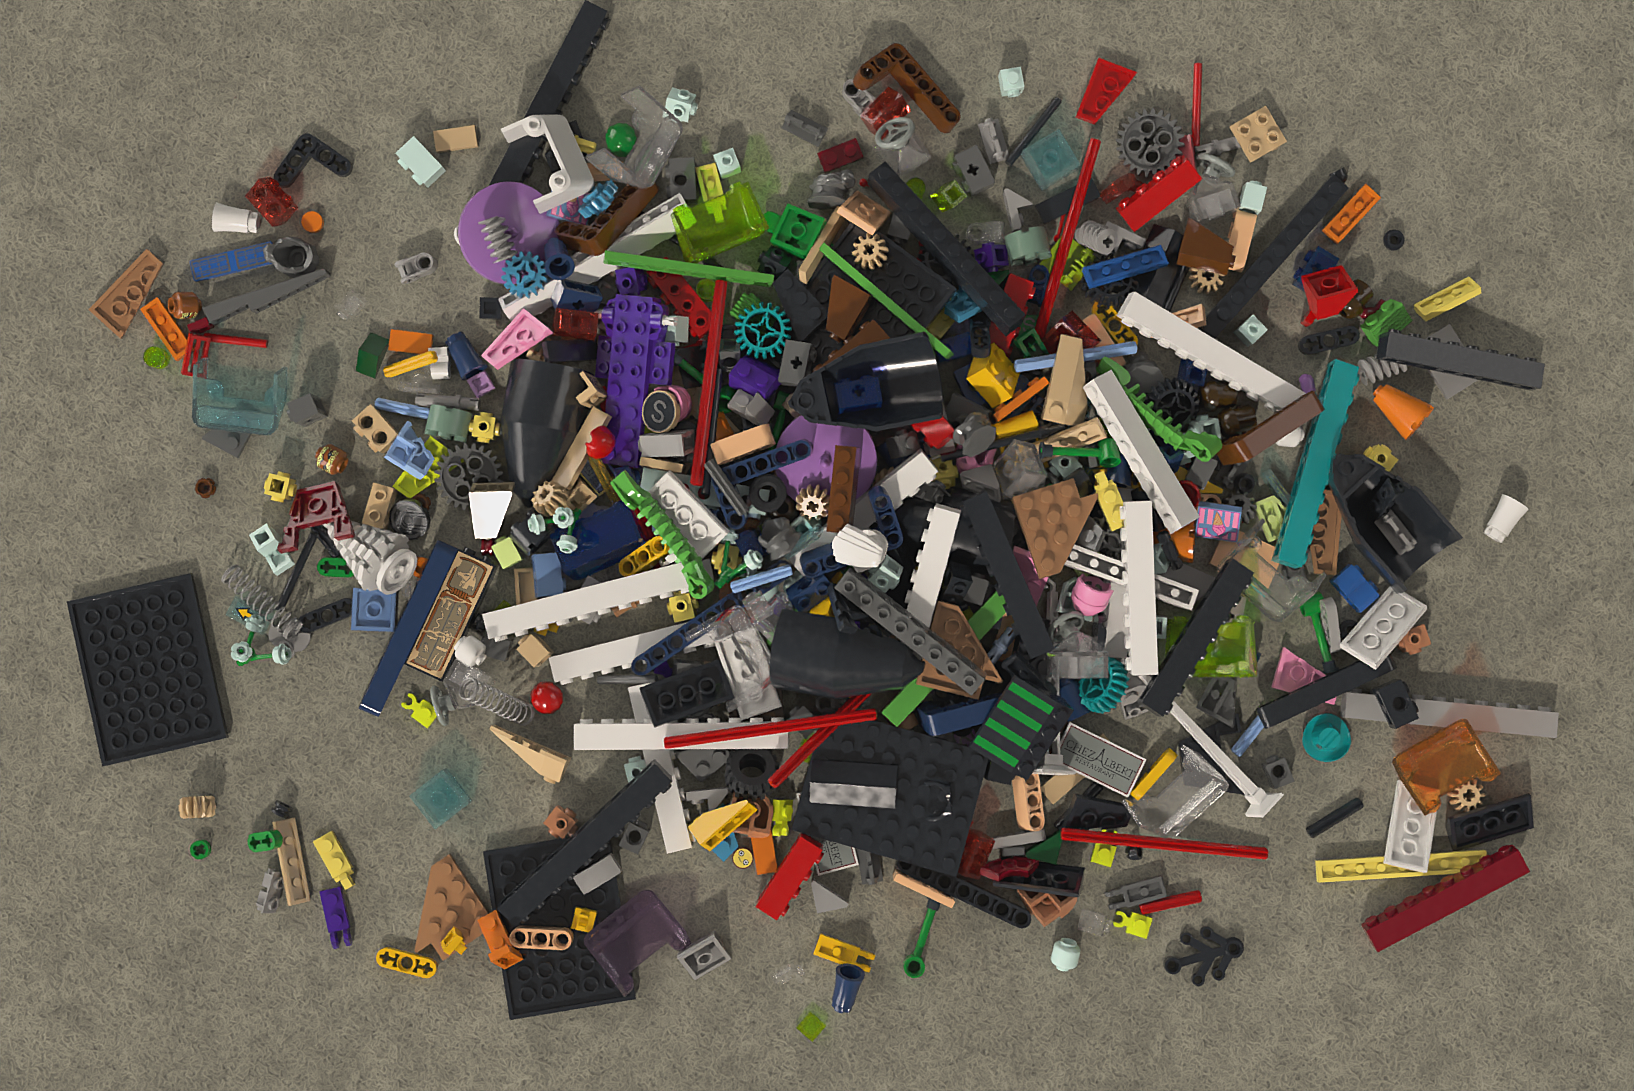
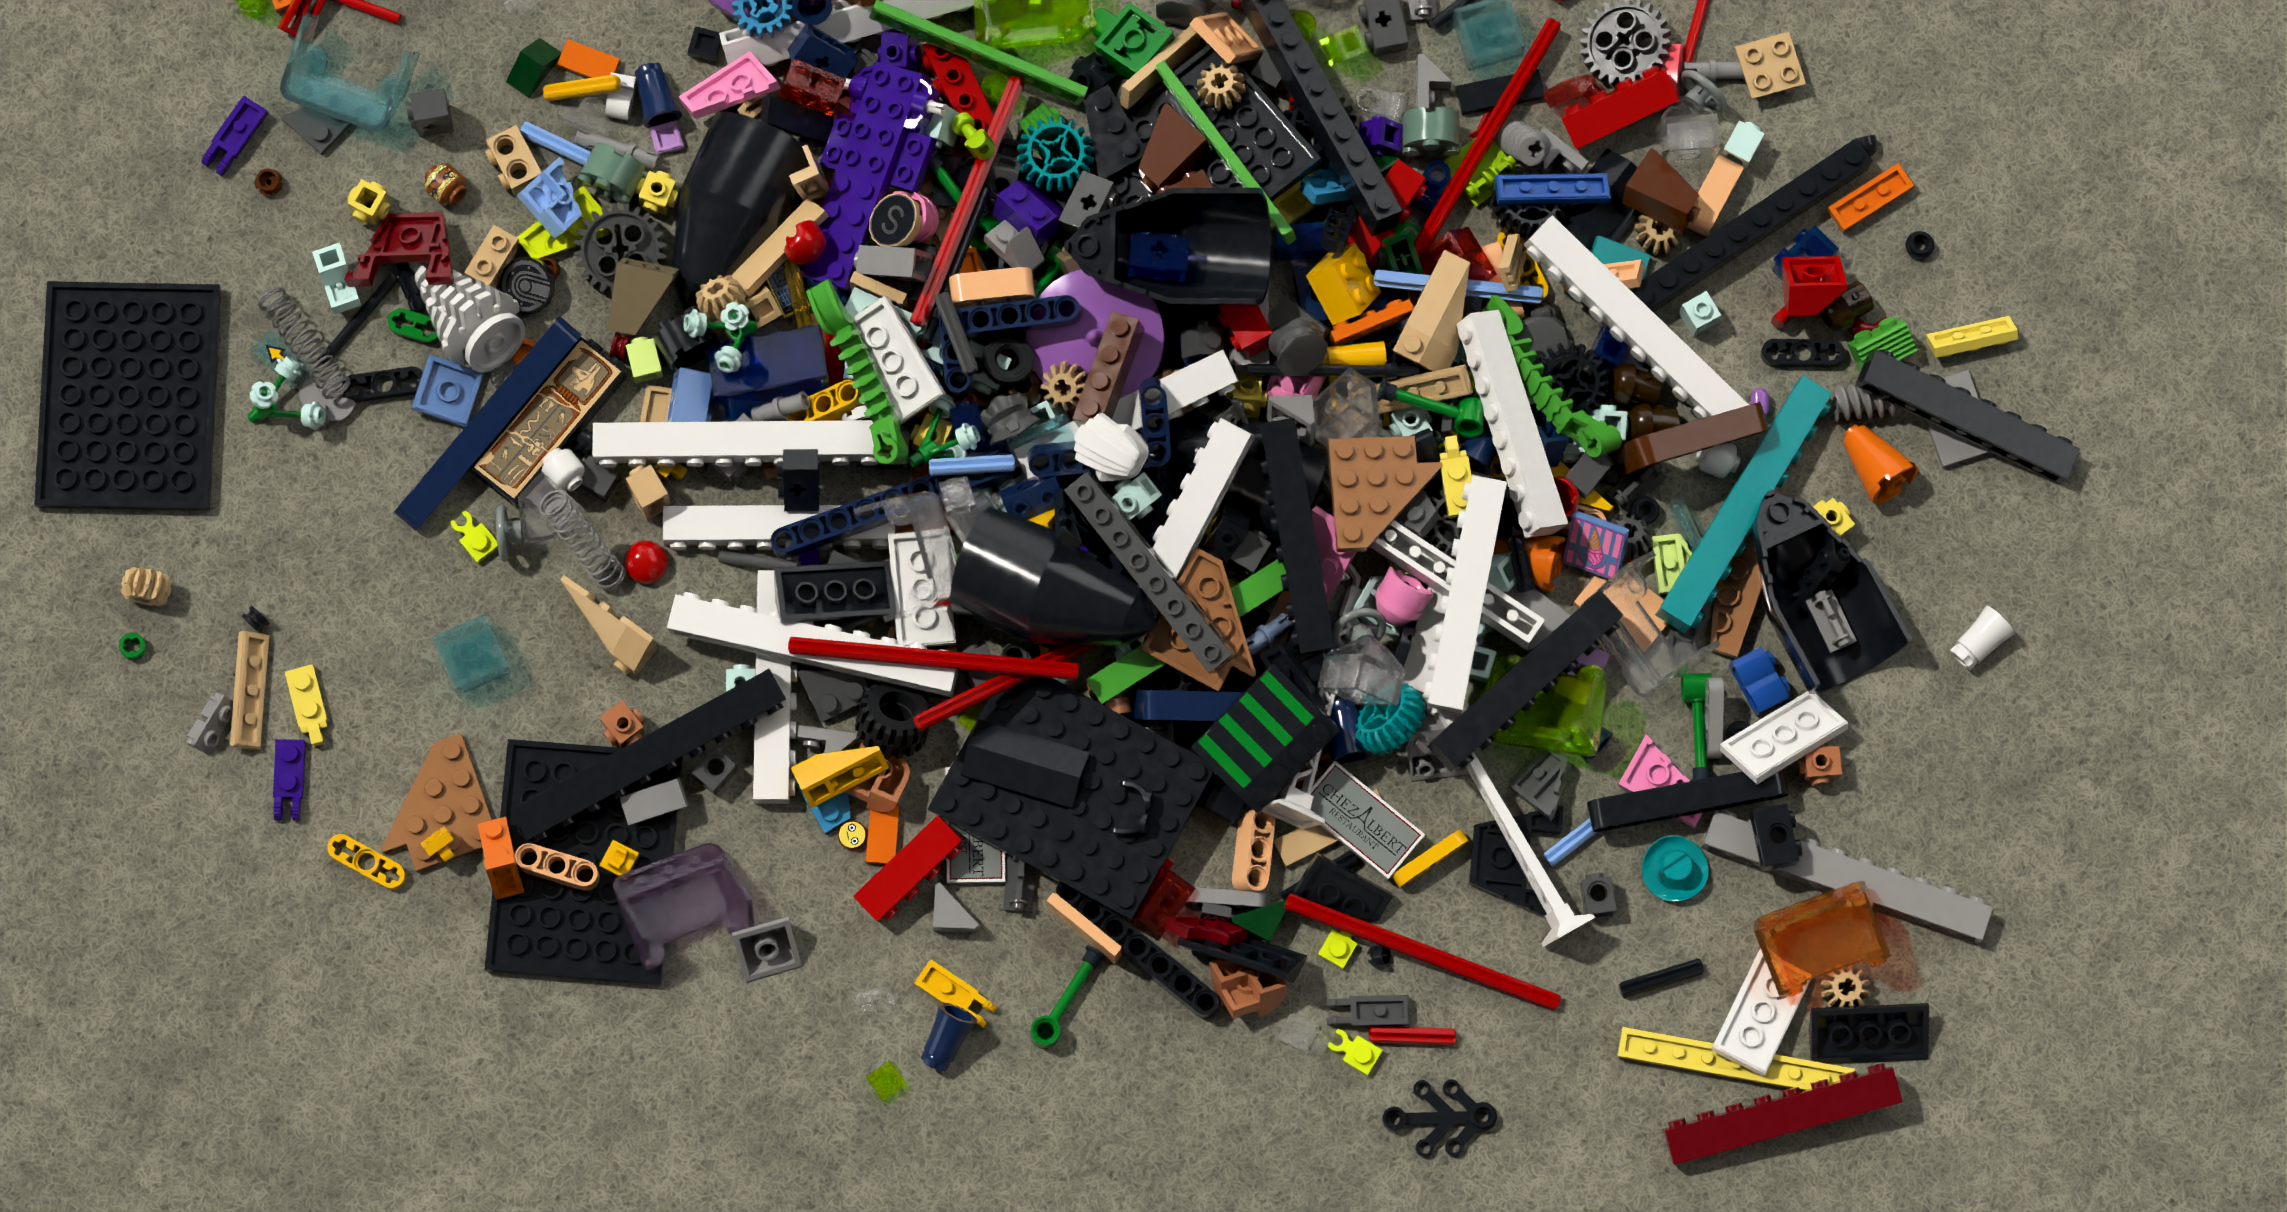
camera: 10 degrees right, 10 degrees down
(171, 458) = (235, 133): none -> dark purple hinge
(264, 837) = (223, 647): green beam -> none
(613, 566) = (781, 407): none -> light grey pin
(640, 618) = (800, 480): none -> black brick
(675, 609) = (851, 476): light yellow brick -> none
(705, 337) = (977, 142): none -> lime leg
(781, 815) = (919, 790): neon yellow plate -> none
(1065, 954) = (1253, 1067): light aqua head -> none
(1110, 329) = (1512, 262): none -> tan tile
(1177, 301) = (1612, 252): none -> teal tile
(1181, 800) = (1463, 898): clear windscreen -> none

